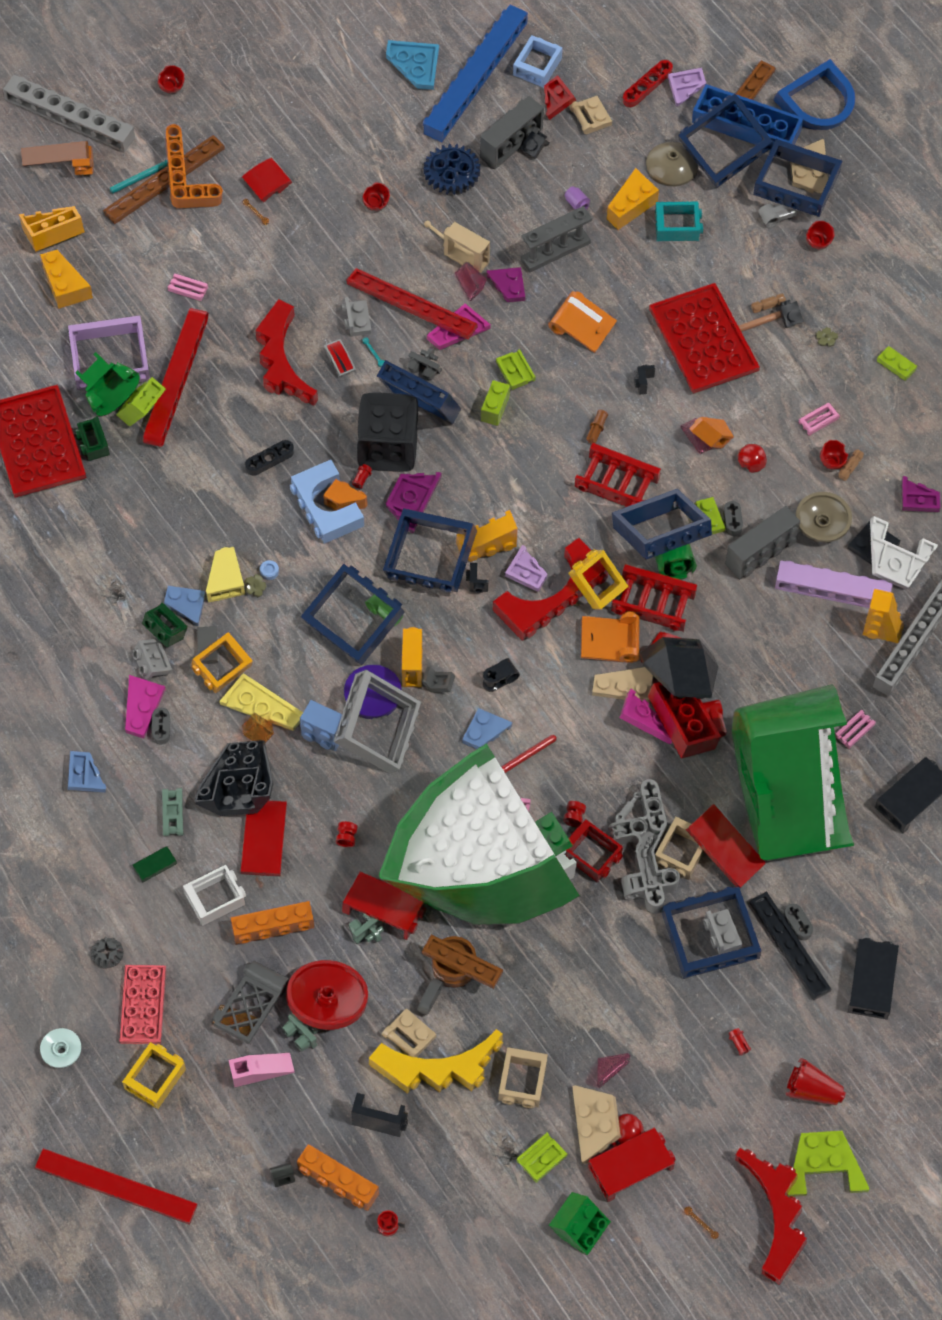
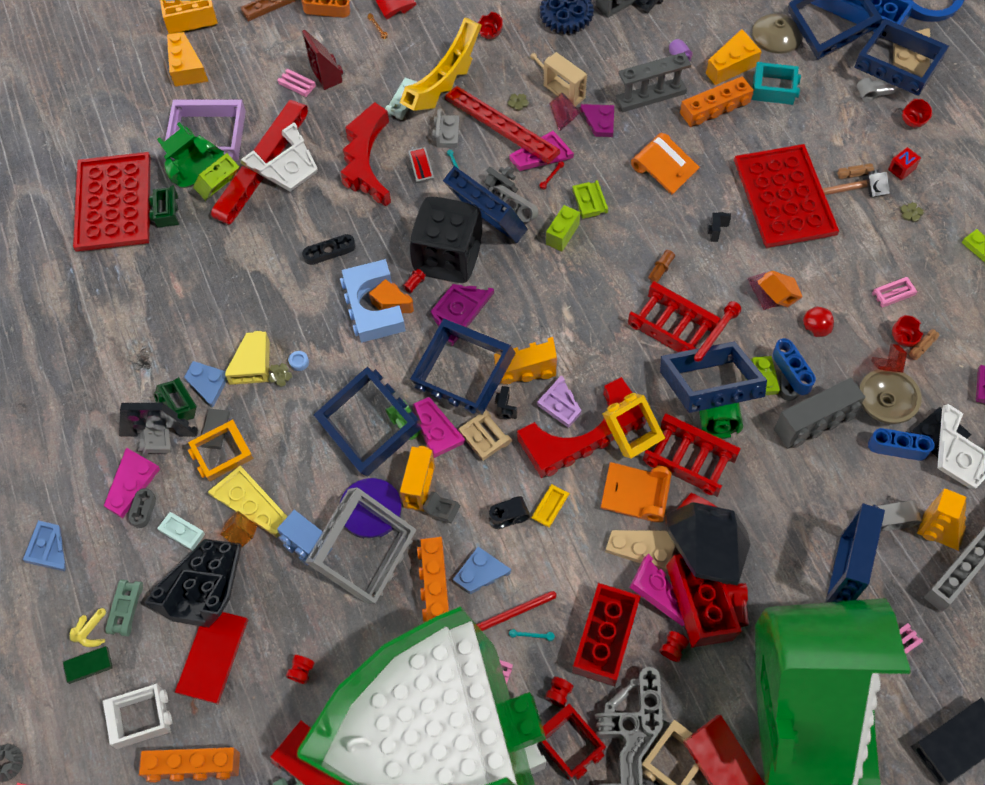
camera: 15 degrees right, 0 degrees up
(140, 838) = (81, 632): none -> light yellow piece
(151, 640) = (151, 415): none -> black wing
(204, 739) = (181, 531): none -> light aqua plate
(208, 380) = (289, 167): none -> white wing
(212, 264) = (322, 62): none -> dark red slope
(304, 288) = (395, 102): none -> light aqua plate
(351, 244) = (456, 61): none -> yellow arch
(417, 611) = (436, 428): none -> dark pink wing
(422, 276) = (518, 102): none -> olive plant
(444, 736) = (434, 577): none -> orange brick
(450, 384) = (520, 203): none -> light grey beam
(458, 614) = (480, 440): none -> tan plate
(466, 361) = (543, 185): none -> red hinge
(535, 663) = (550, 505): none -> yellow tile
(557, 773) = (549, 636): none -> teal hinge
(606, 760) = (606, 634): none -> red brick
(622, 249) = (716, 101): none -> orange brick
(666, 760) = (674, 646): none -> red wheel
(670, 460) = (731, 311): none -> red piece
(730, 496) = (793, 375): none -> blue beam
(808, 652) = (856, 555): none -> dark blue window
(814, 289) = (904, 163): none -> red brick
(824, 486) = (895, 361): none -> clear red panel
(828, 584) = (888, 471): lavender brick -> none
(835, 624) = (900, 515): none -> light grey beam
(847, 555) = (909, 440): none -> blue beam

